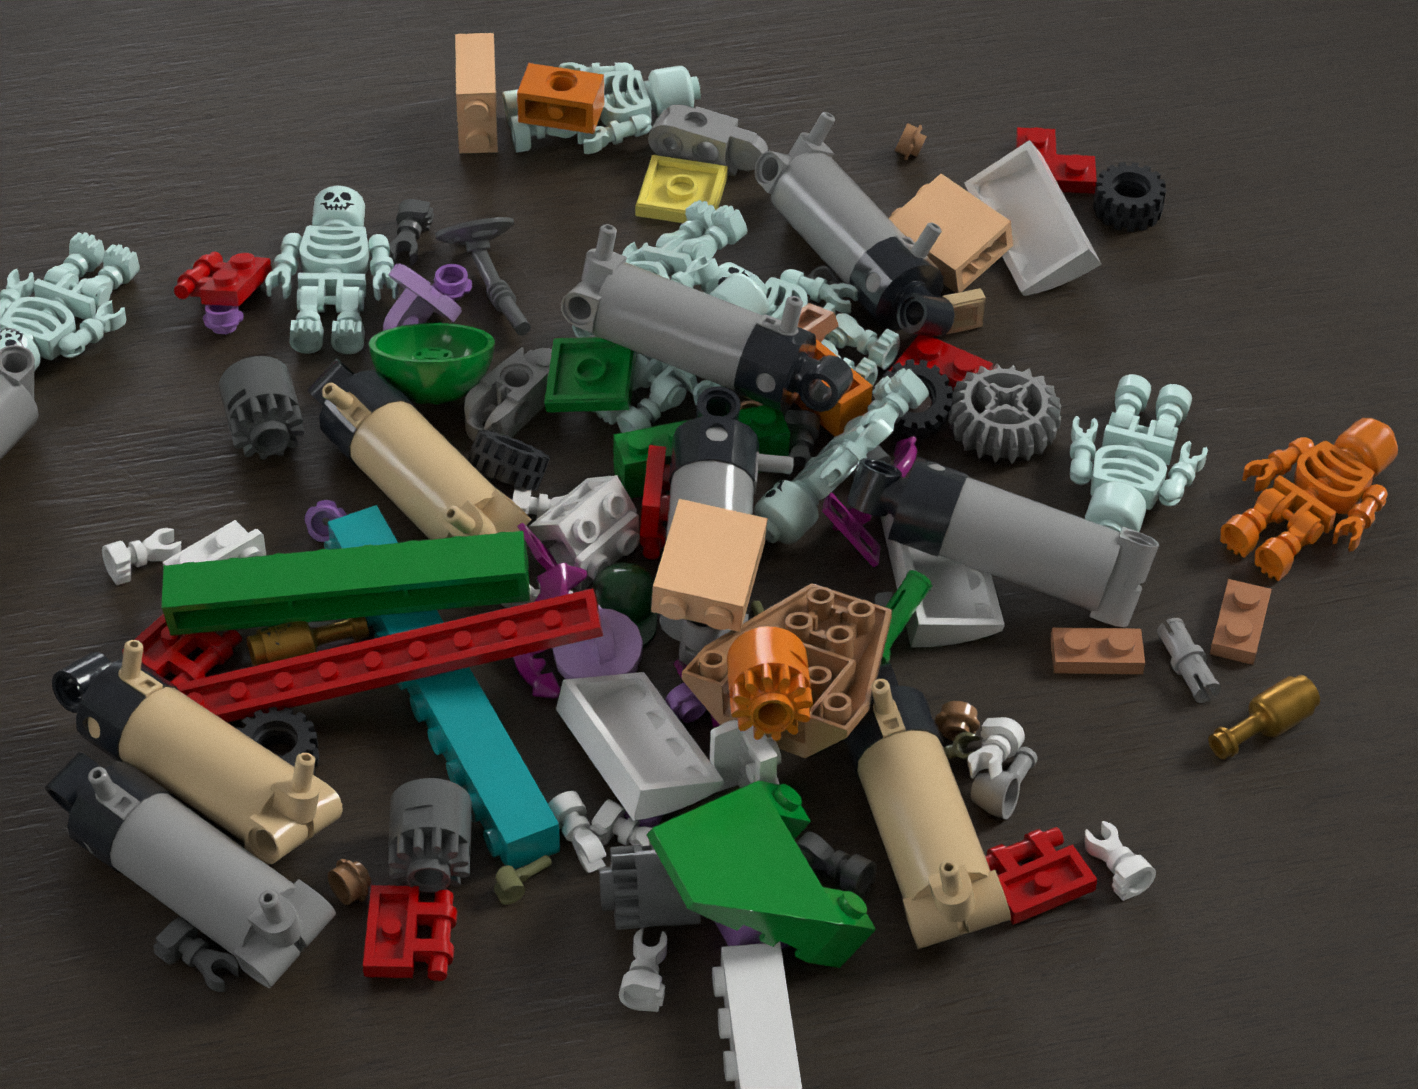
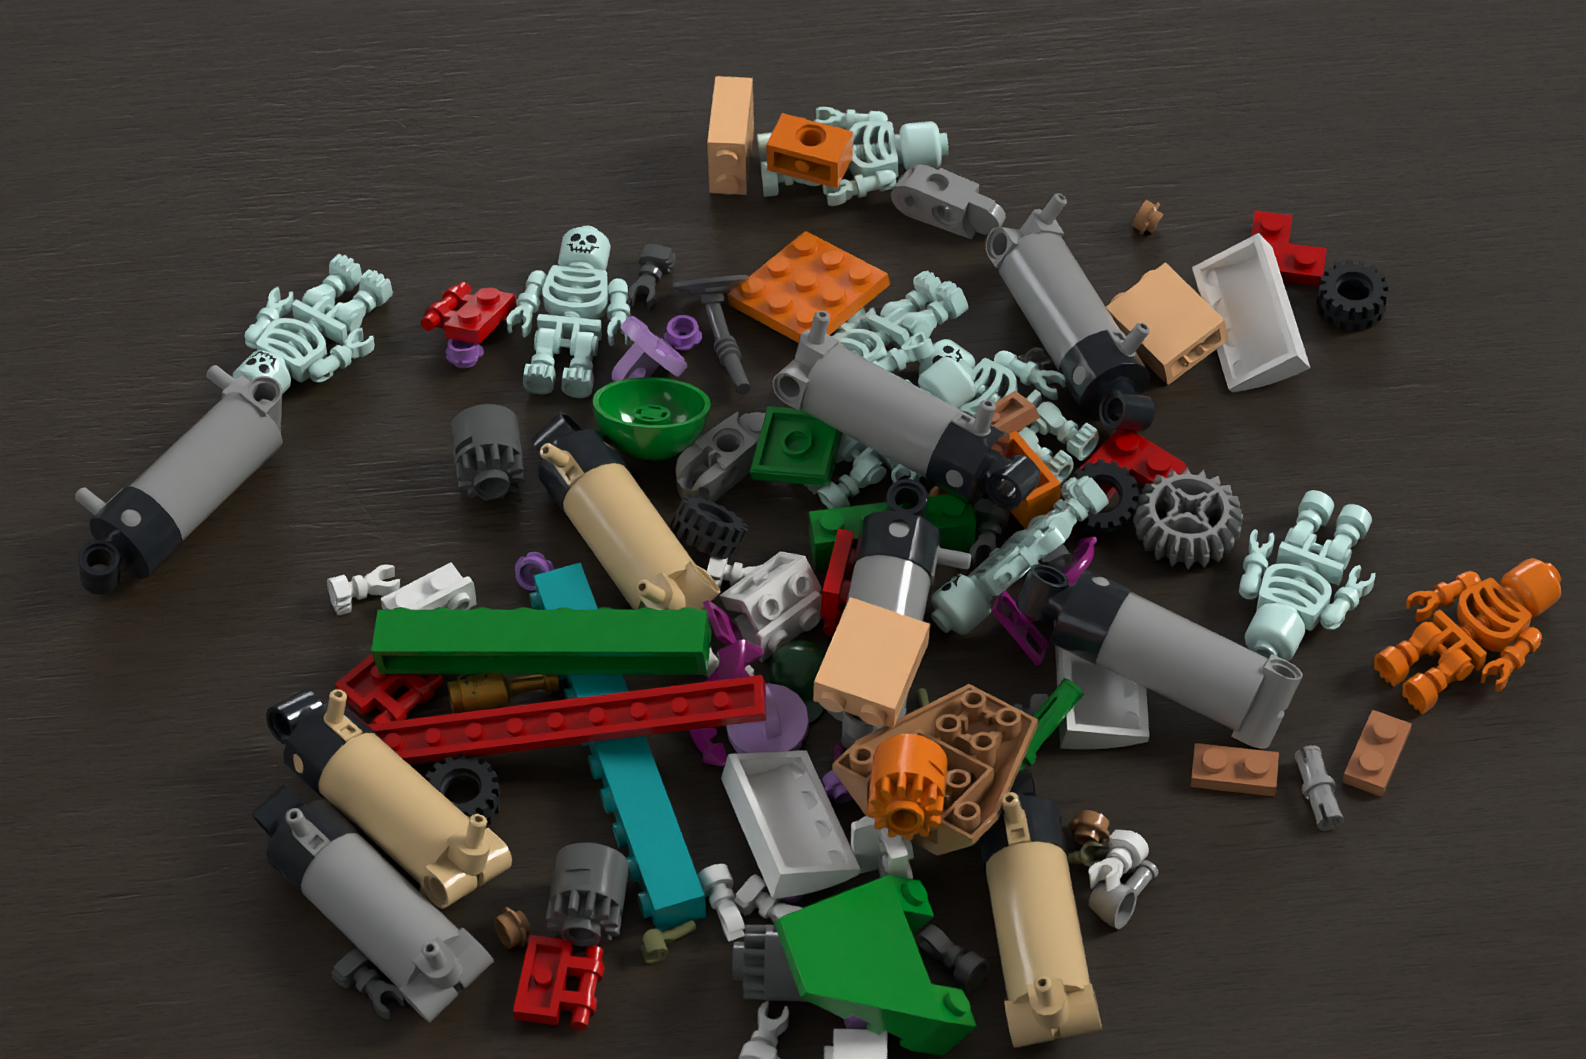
camera: 10 degrees right, 5 degrees up
(567, 226) = (808, 279): none -> orange plate
(676, 184) = (917, 246): light yellow tile -> none
(968, 309) = (1169, 406): tan tile -> none
(1042, 883) = (1140, 995): red plate -> none
(1131, 871) = (1224, 993): white piece -> none
(1270, 713) = (1386, 849): pearl gold piece -> none

